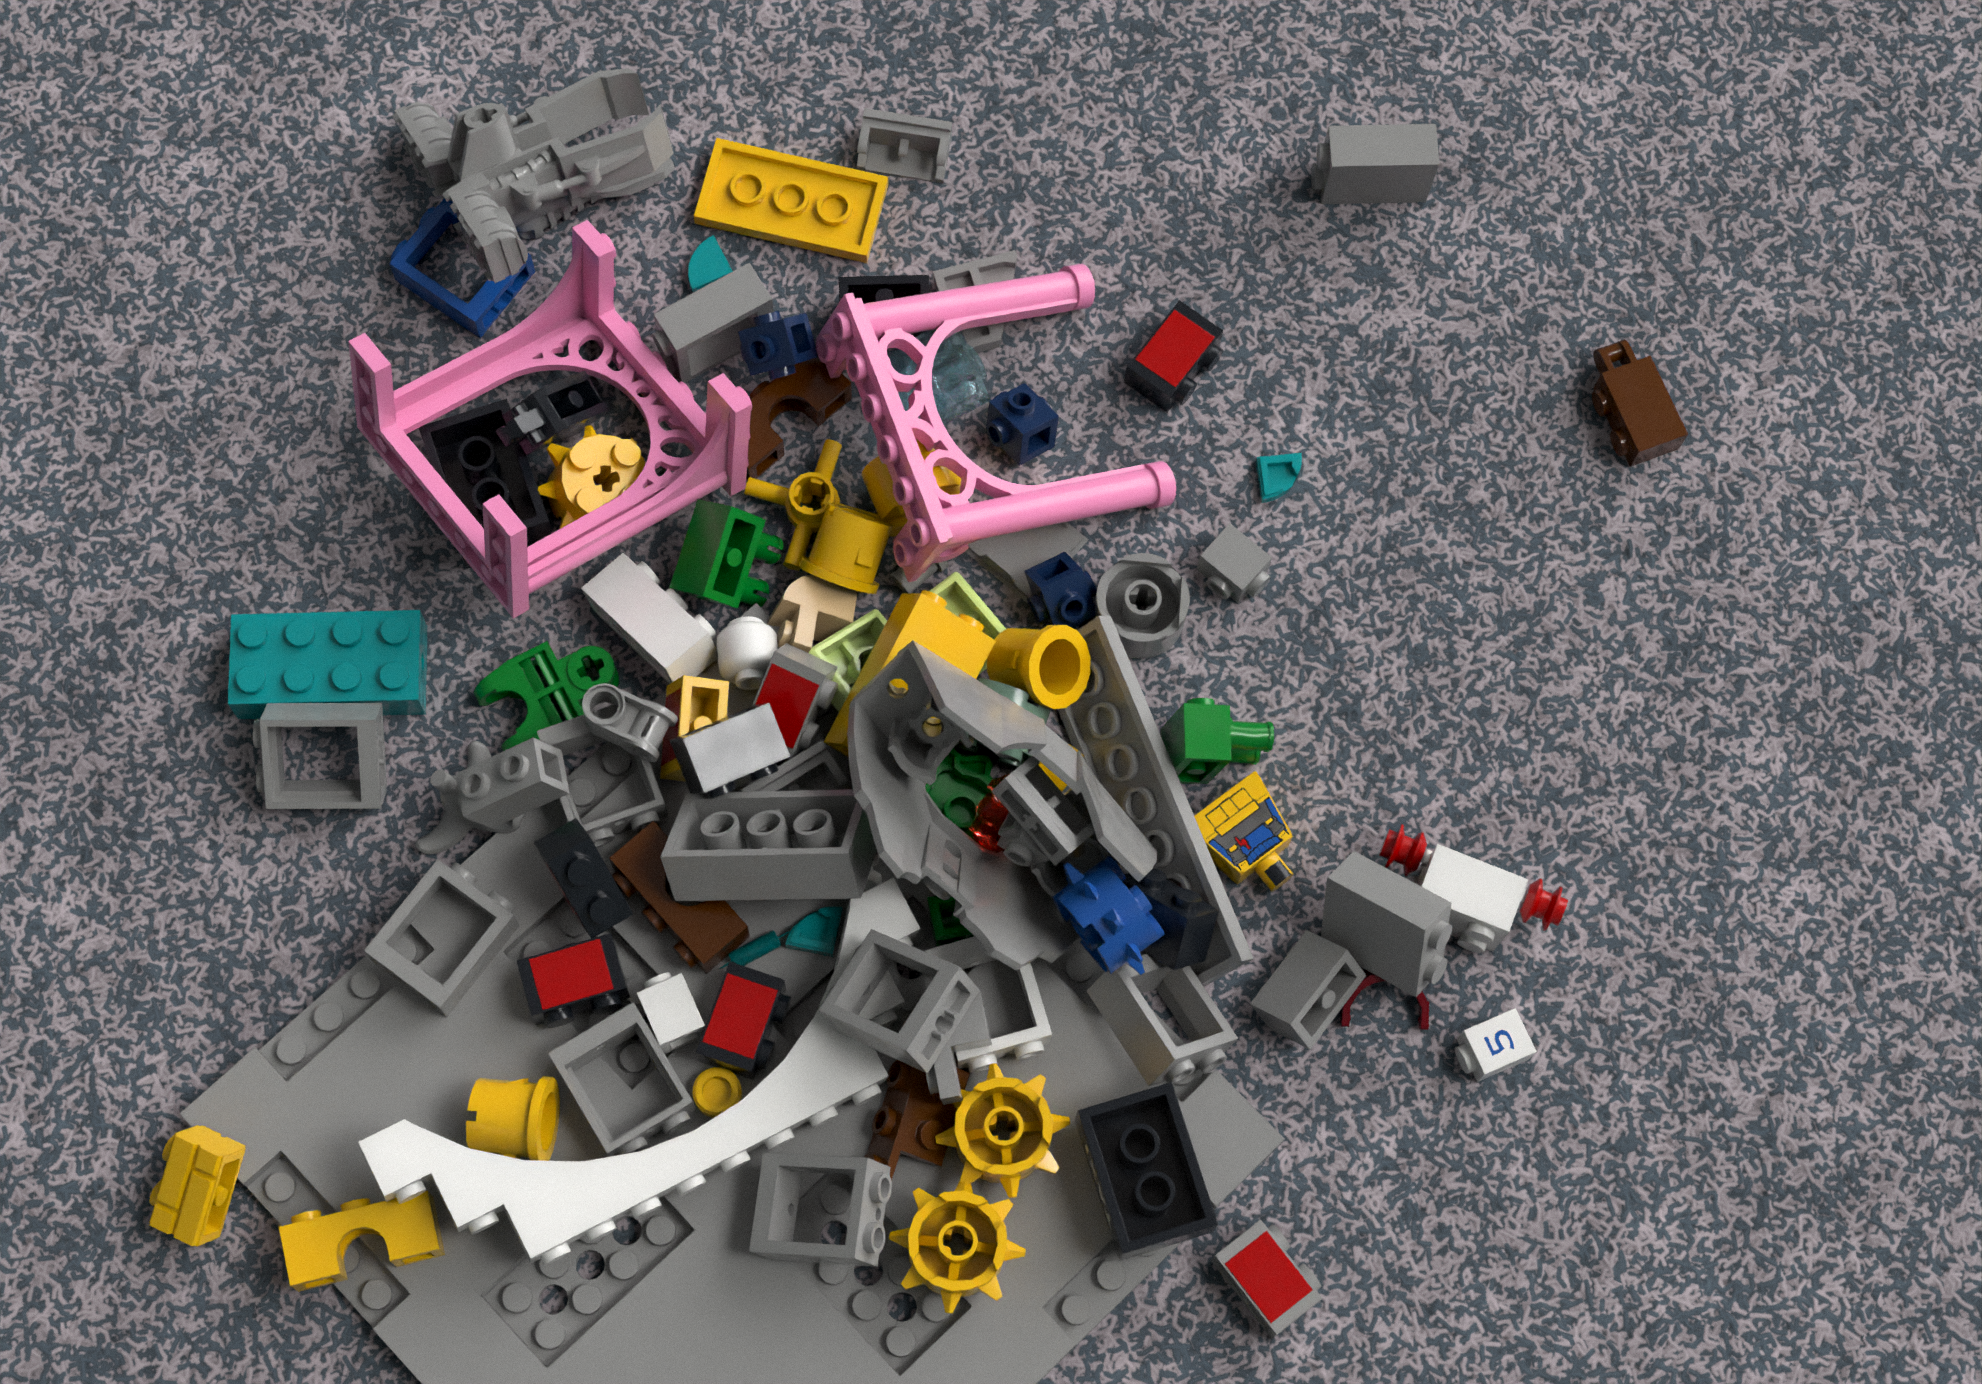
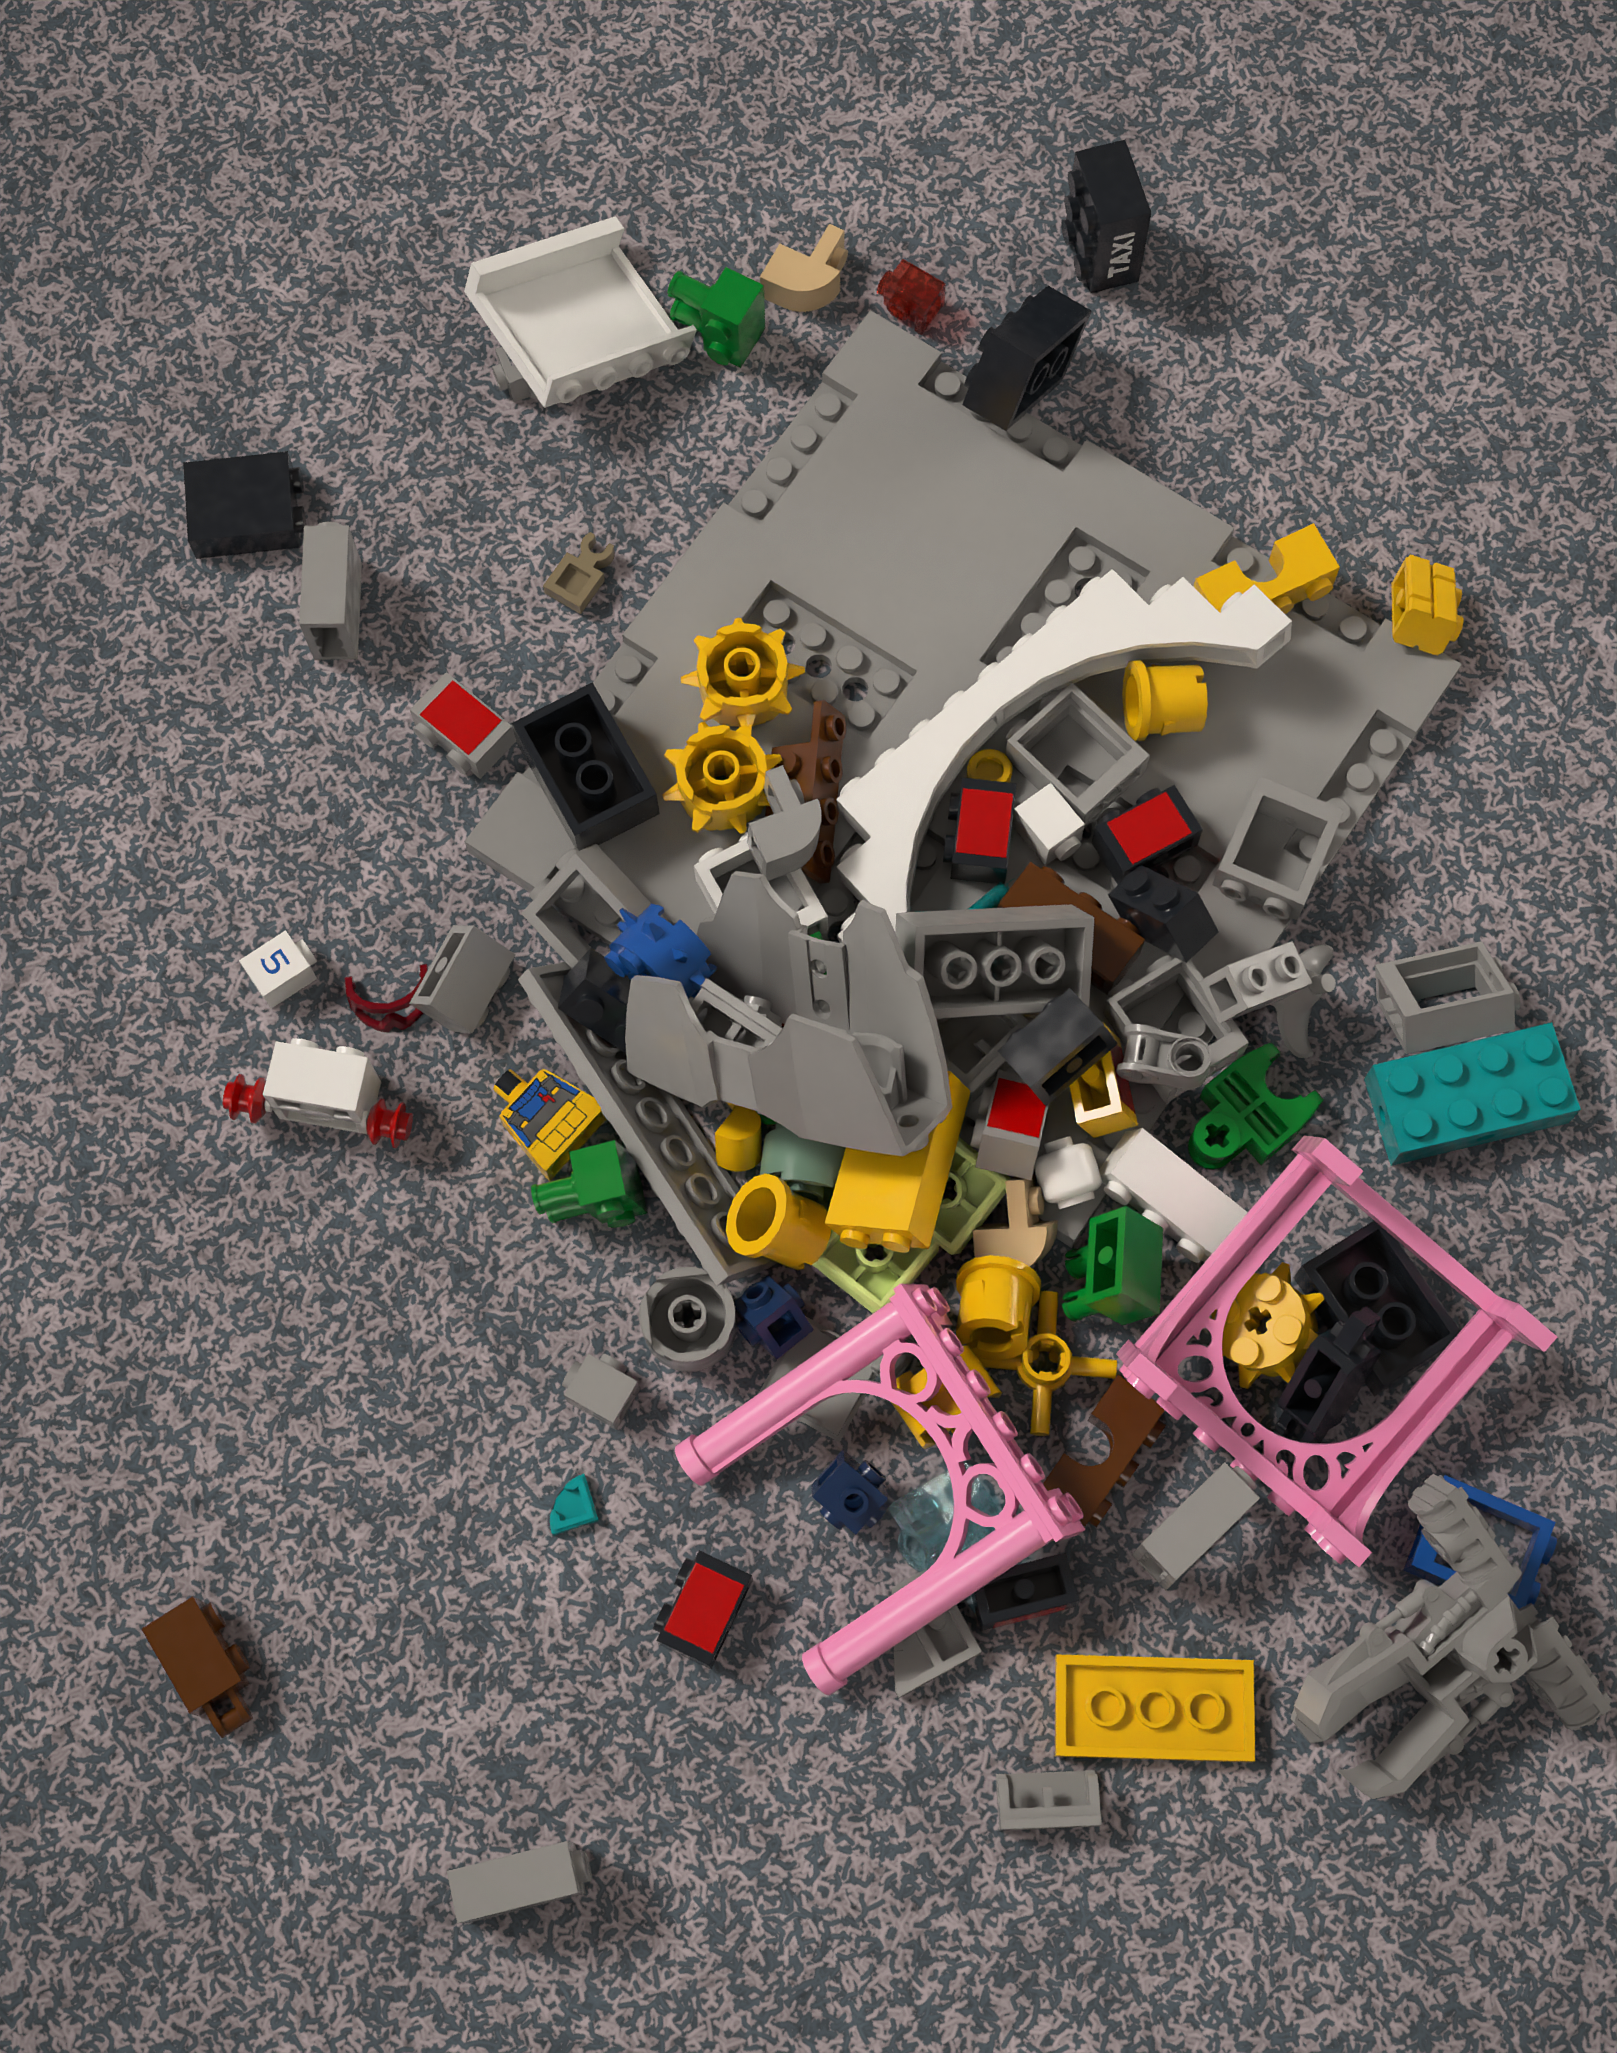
camera: 175 degrees right, 0 degrees up
(707, 264) = (1223, 1613): teal tile -> none
(777, 344) = (1122, 1503): dark blue brick -> none
(778, 1205) = (908, 672): light grey window -> none
(921, 1036) = (800, 823): light grey window -> none
(1387, 923) = (395, 1037): light grey brick -> none

